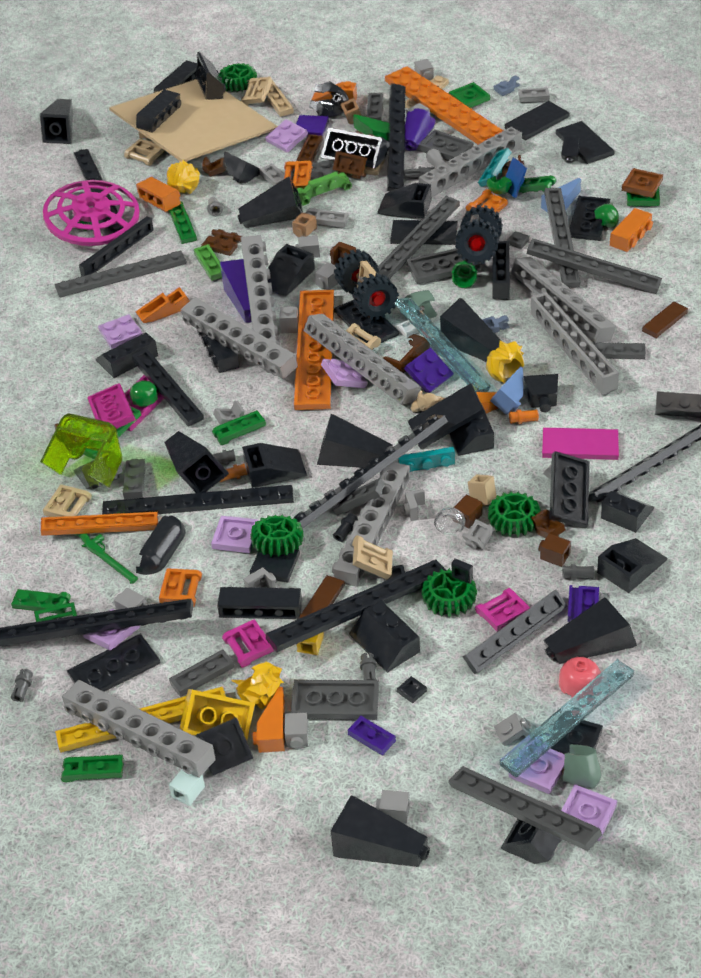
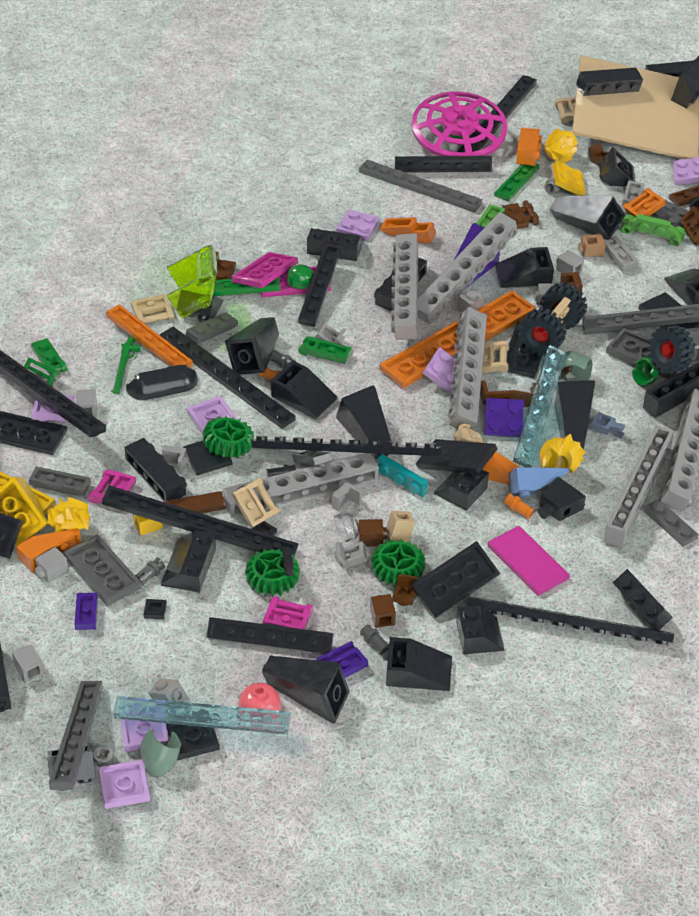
camera: 45 degrees right, 0 degrees up
(57, 122) = (545, 43): black slope -> none
(174, 584) = (129, 414): orange plate -> none
(220, 194) = (568, 178): none -> yellow plate

